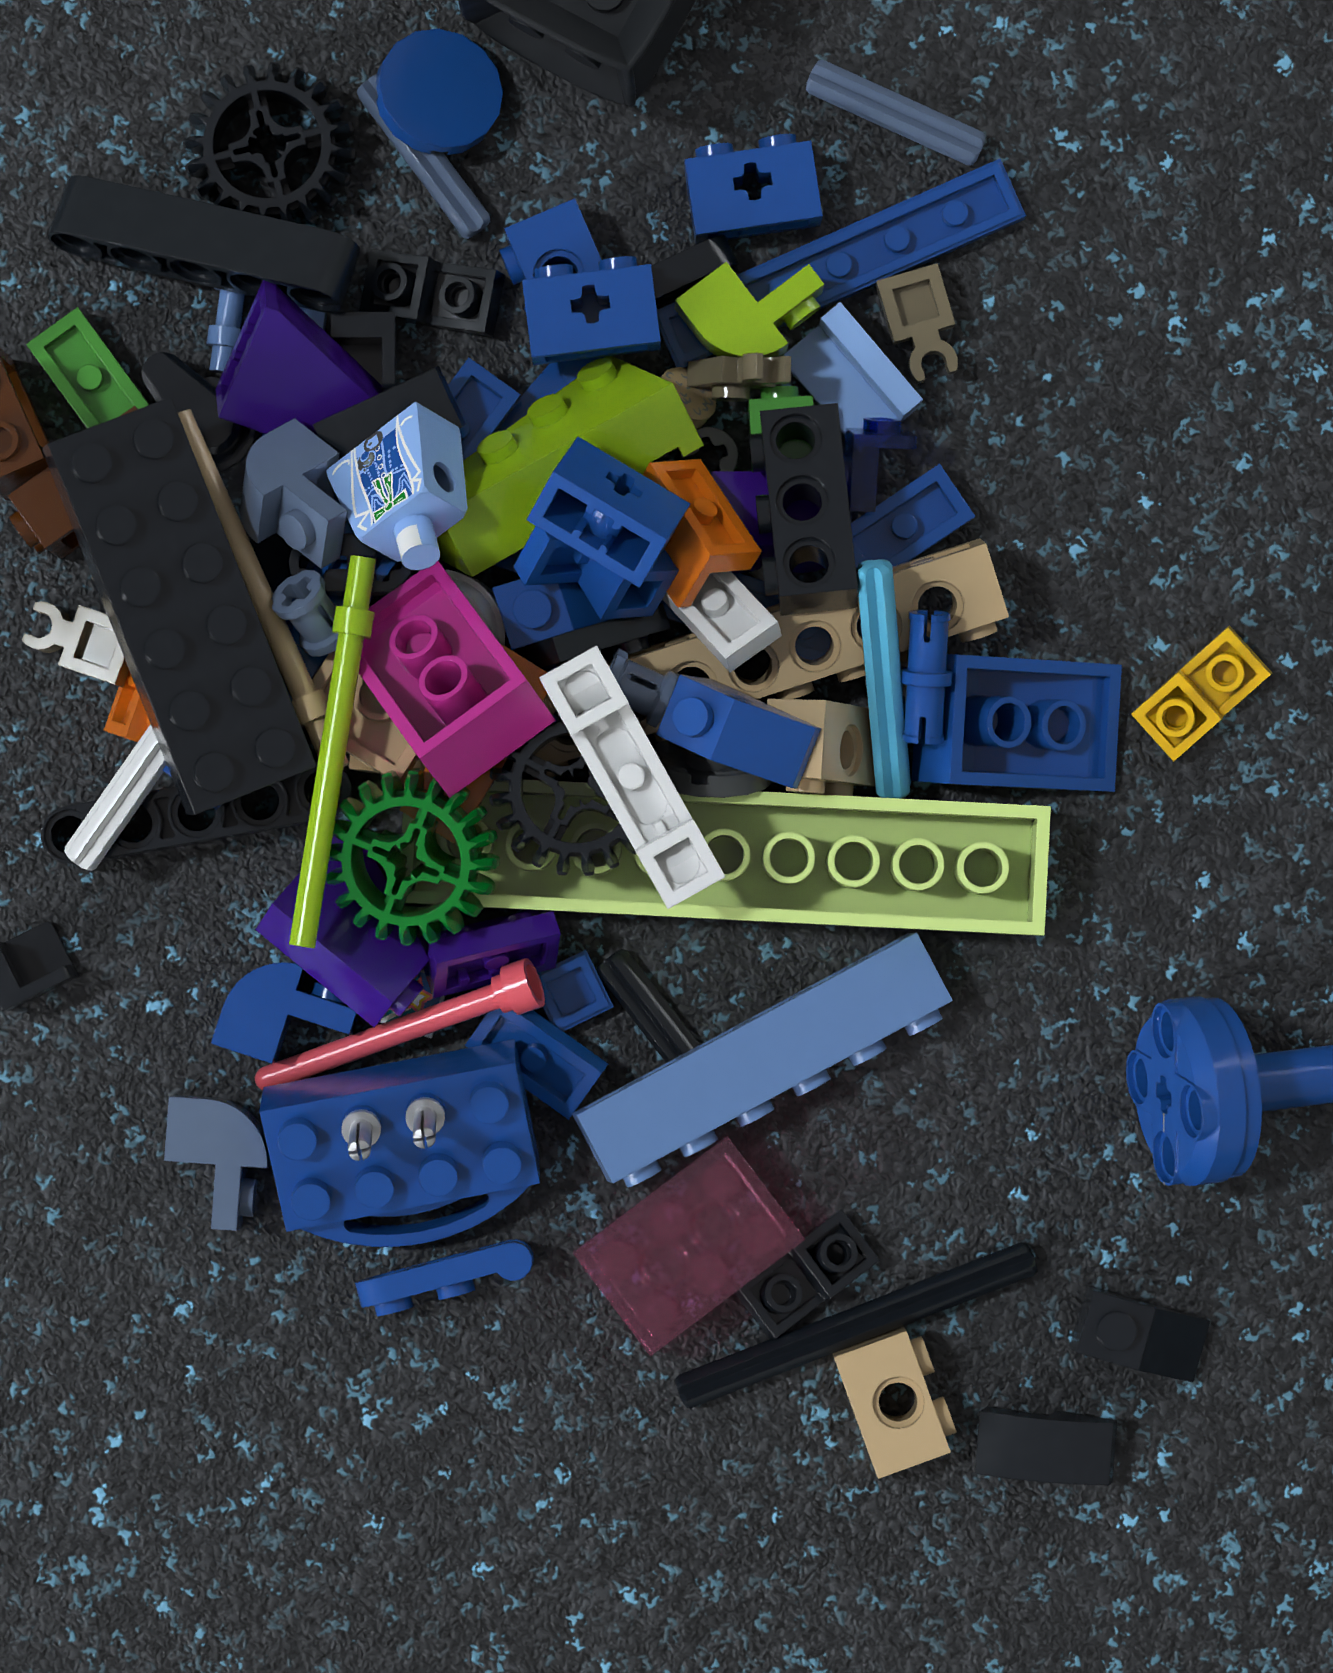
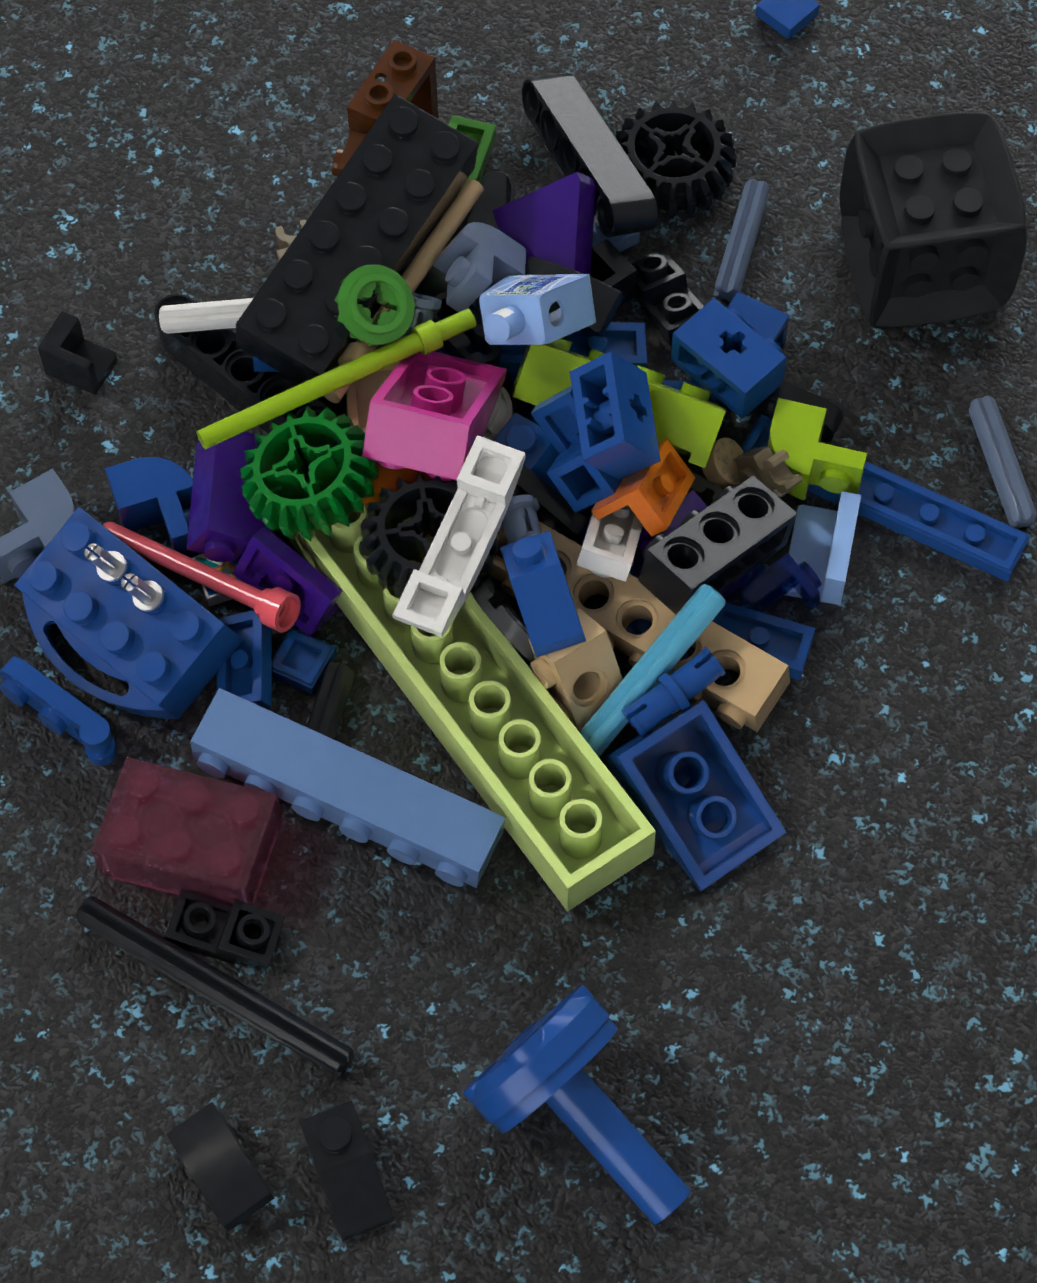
camera: 55 degrees right, 25 degrees down
(316, 657) = (390, 291): none -> bright green gear
(438, 92) = (785, 216): blue tile -> none
(784, 205) = (884, 414): blue brick -> none
(894, 1440) = (179, 1009): tan brick -> none
(917, 311) = (893, 554): dark tan plate -> none
(1201, 693) = (811, 897): yellow slope -> none

